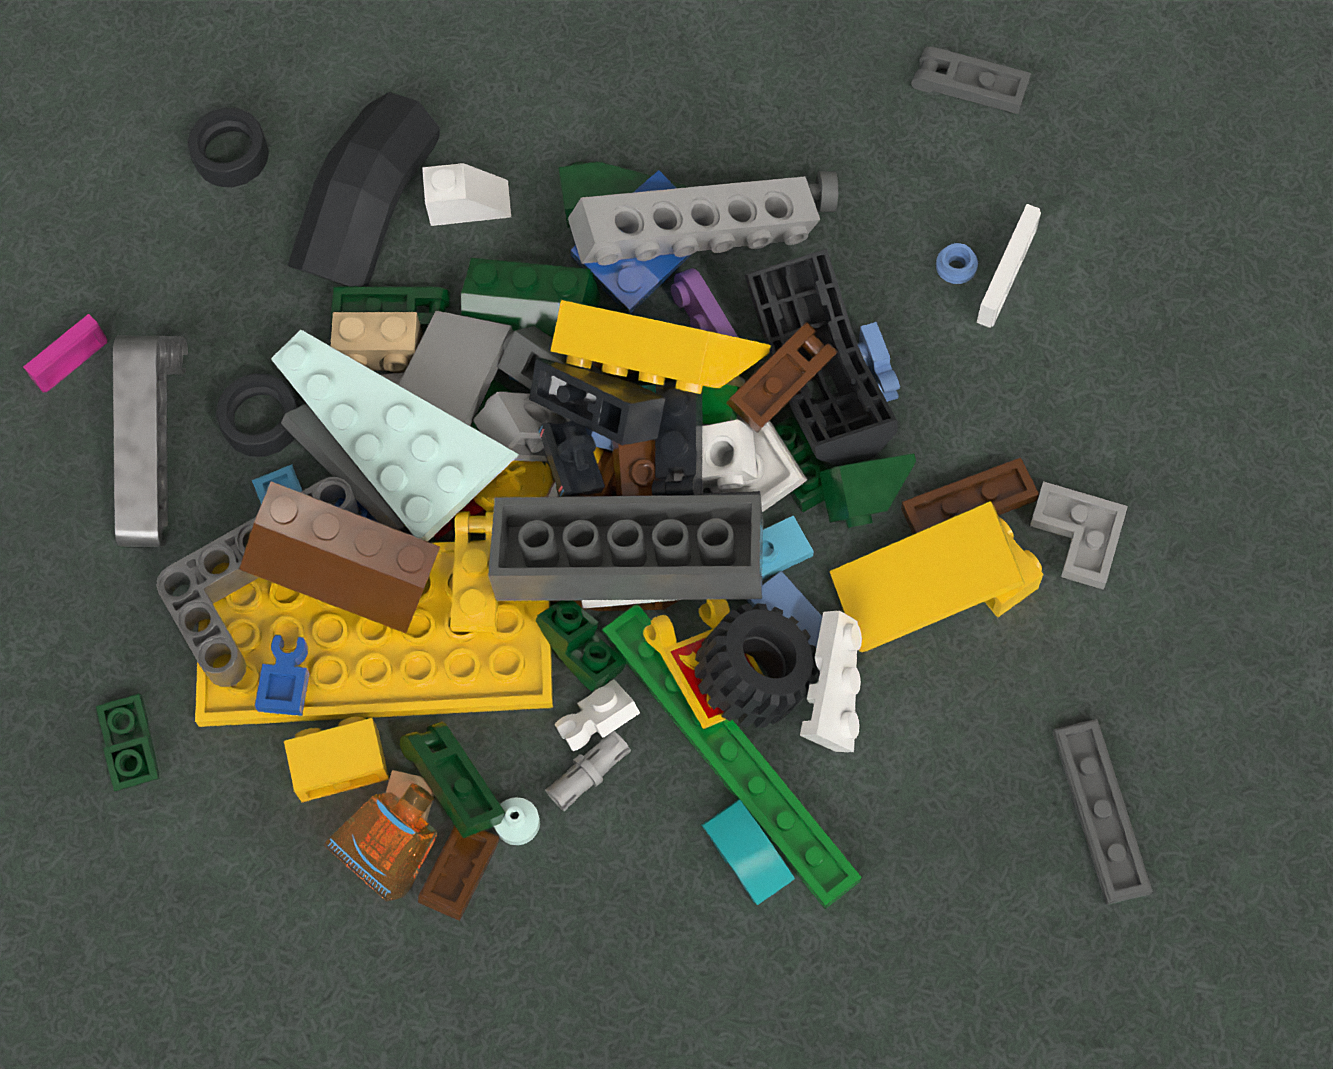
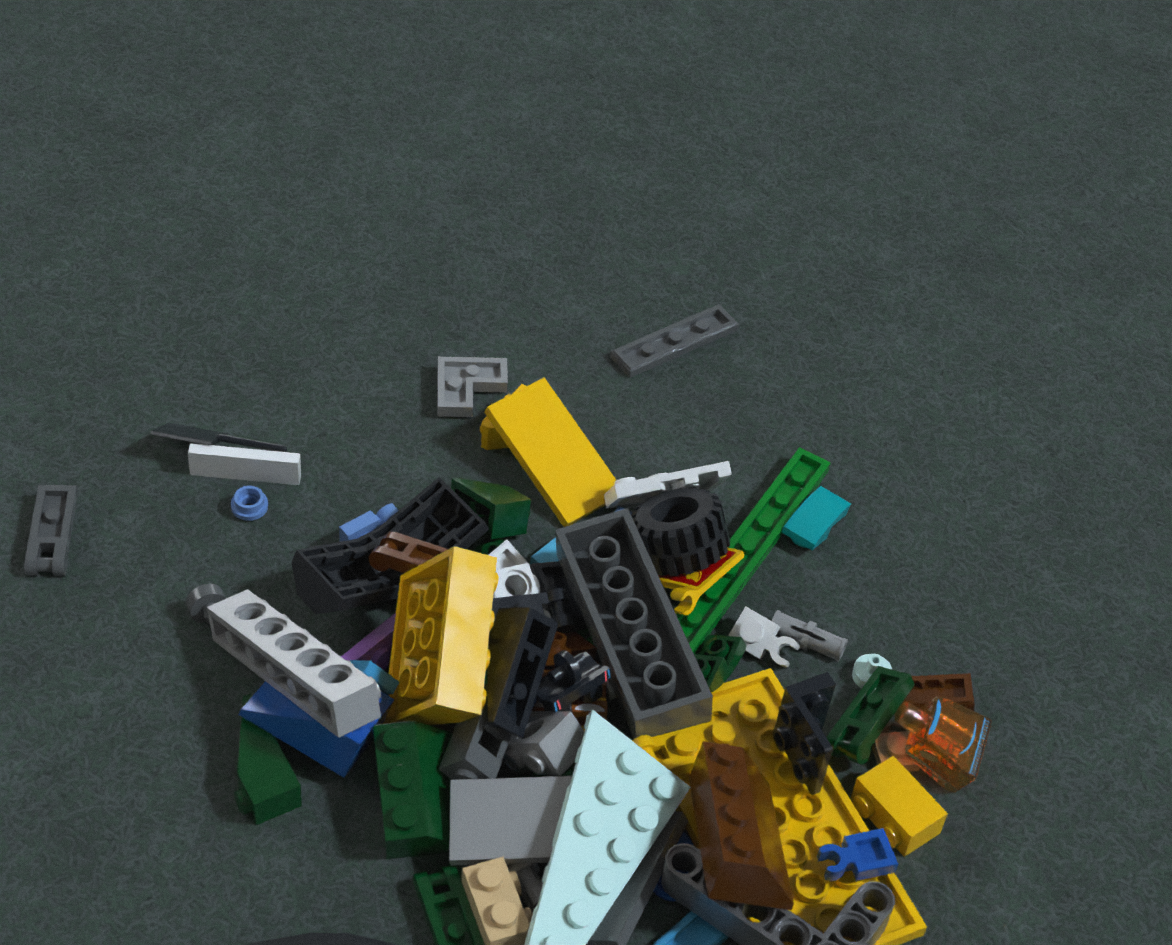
camera: 120 degrees left, 20 degrees down
(434, 660) = (800, 729): none -> black bracket
(464, 194) = (304, 896): white slope -> none
(663, 296) = (385, 681): none -> dark azure tile
(1005, 486) = (469, 449): reddish brown plate -> none
(1067, 225) = (210, 437): none -> black piece

